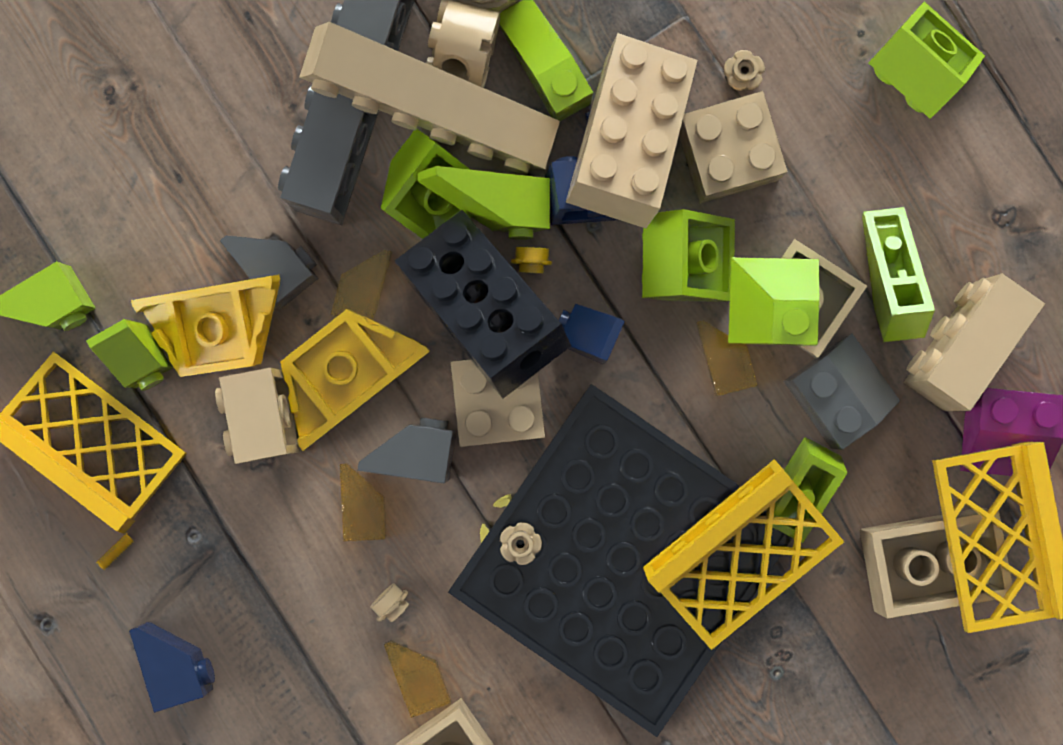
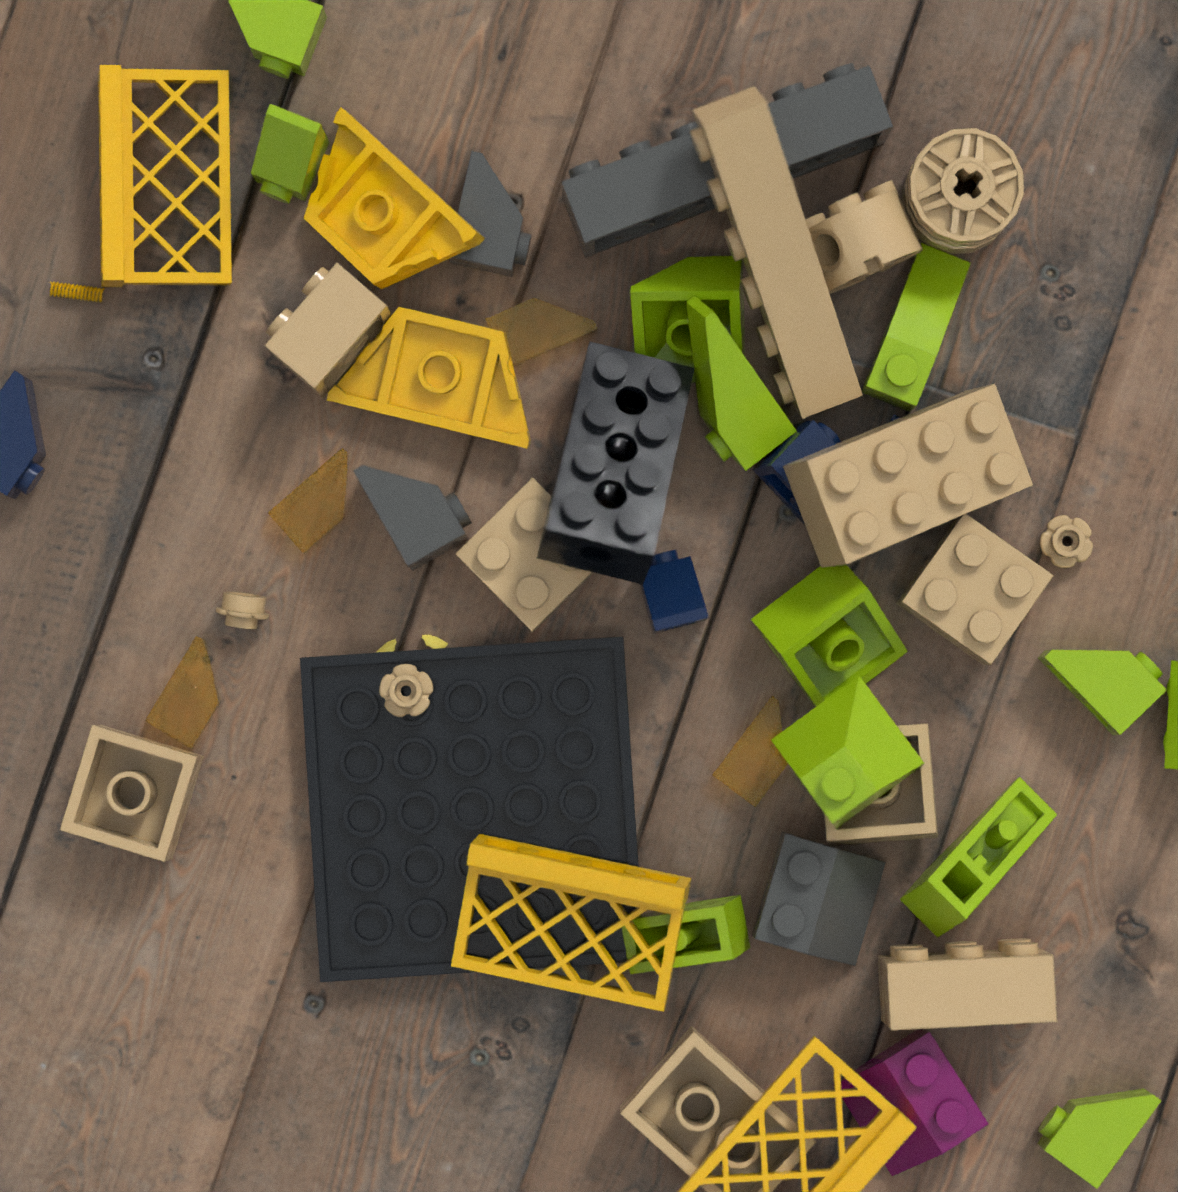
camera: 55 degrees right, 0 degrees up
(531, 259) = (701, 477): yellow plate -> none
(853, 112) = (1108, 683): none -> lime slope

